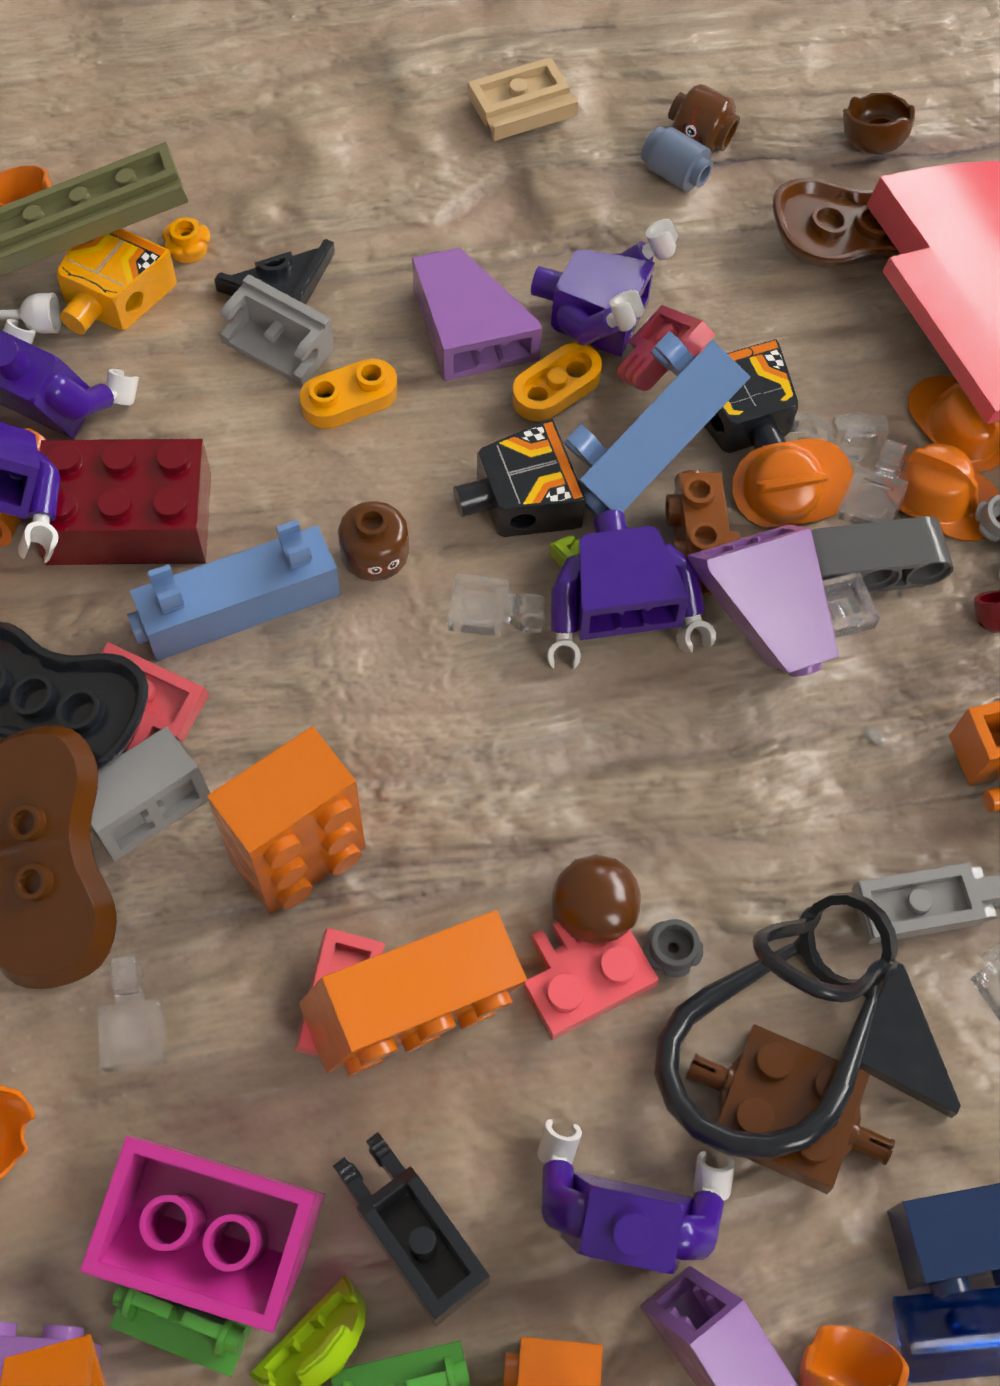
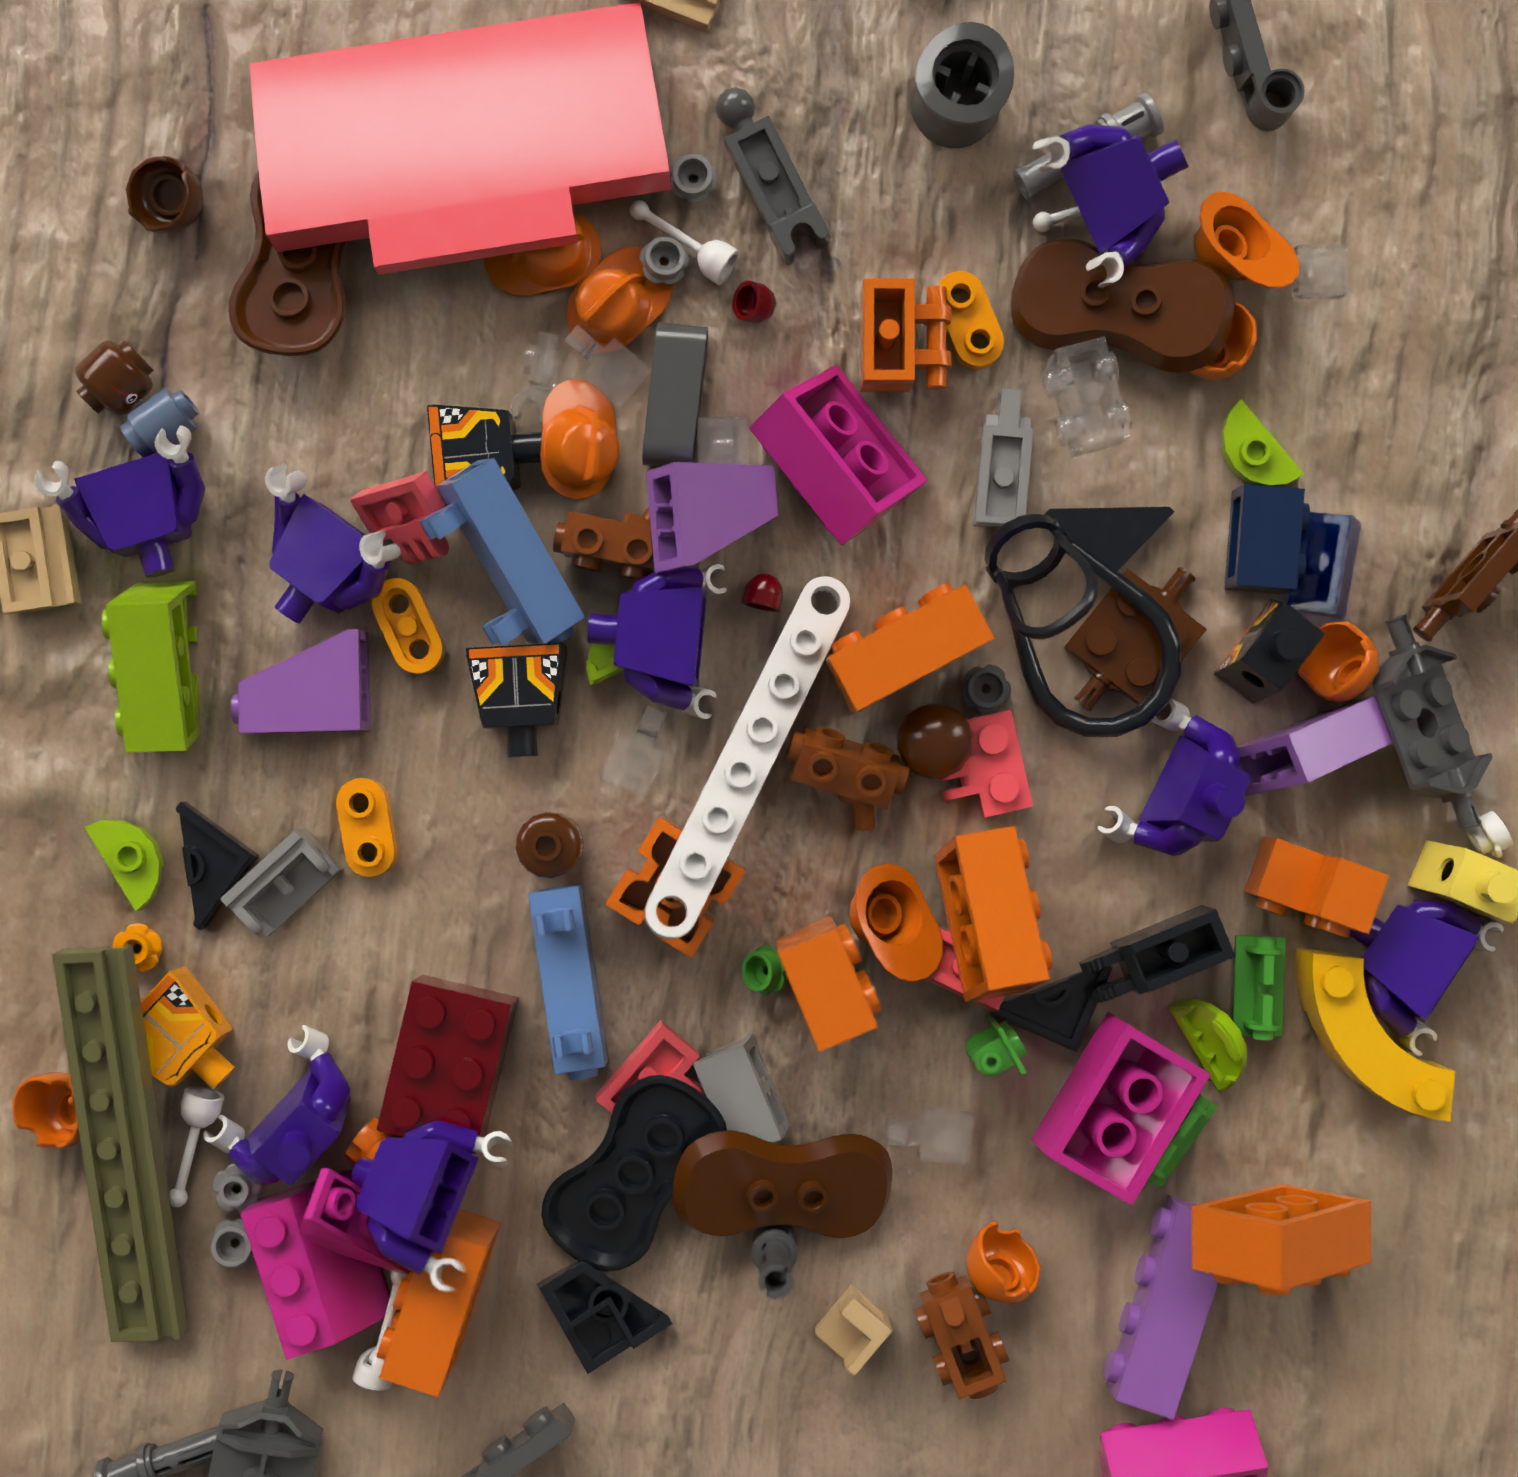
camera: 70 degrees left, 25 degrees up
(254, 1052) = (996, 1048): none -> bright green hinge
(270, 219) = (131, 857): none -> lime plate
(312, 1131) = (1057, 1009): none -> black tile
(360, 665) = (636, 887): none -> orange brick
(376, 901) = (896, 923): none -> orange piece
(455, 190) = (153, 666): none -> lime wedge
(520, 694) = (747, 757): none -> white plate
(536, 822) = (854, 771): none -> dark orange brick
(598, 153) = (135, 504): none -> dark purple torso
(692, 831) = (907, 646): none -> orange brick
(699, 687) = (763, 593): none -> dark red hinge
(834, 1273) = (1271, 650): none -> black torso
(876, 723) = (837, 453): none -> dark pink slope

